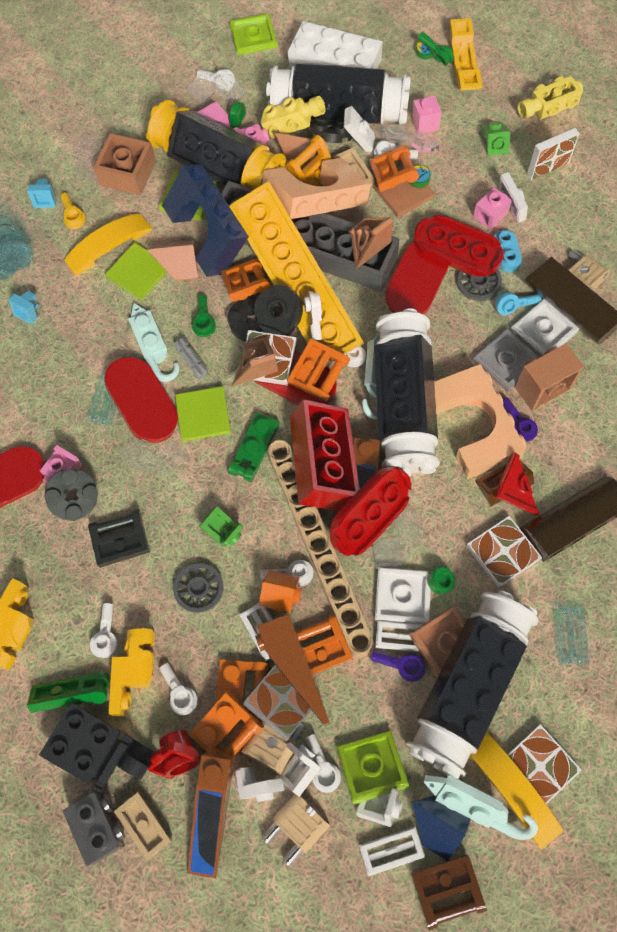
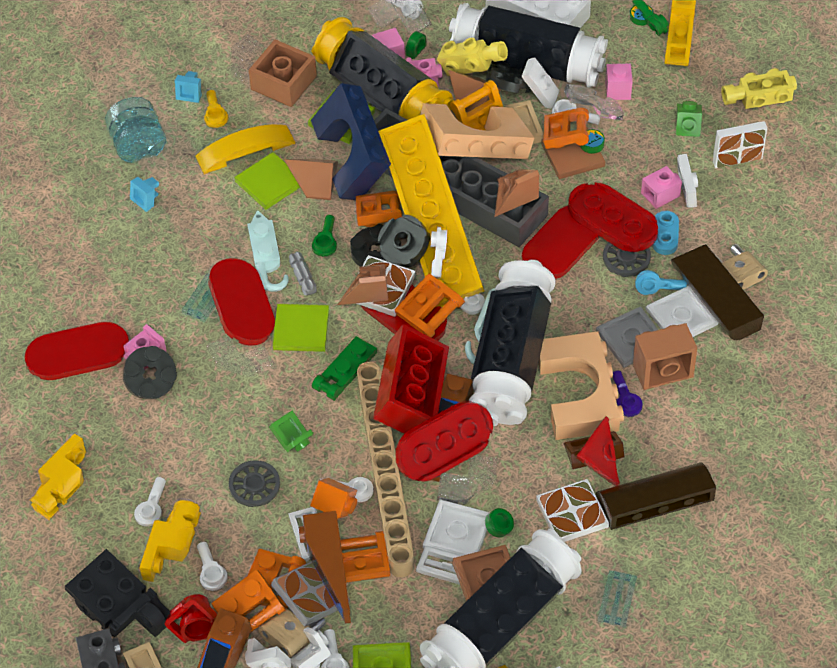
camera: 10 degrees right, 15 degrees down
(67, 691) = (93, 545): green plate -> none
(119, 545) = (186, 430): pearl dark grey plate -> none
(410, 666) = (445, 592): dark purple plate -> none

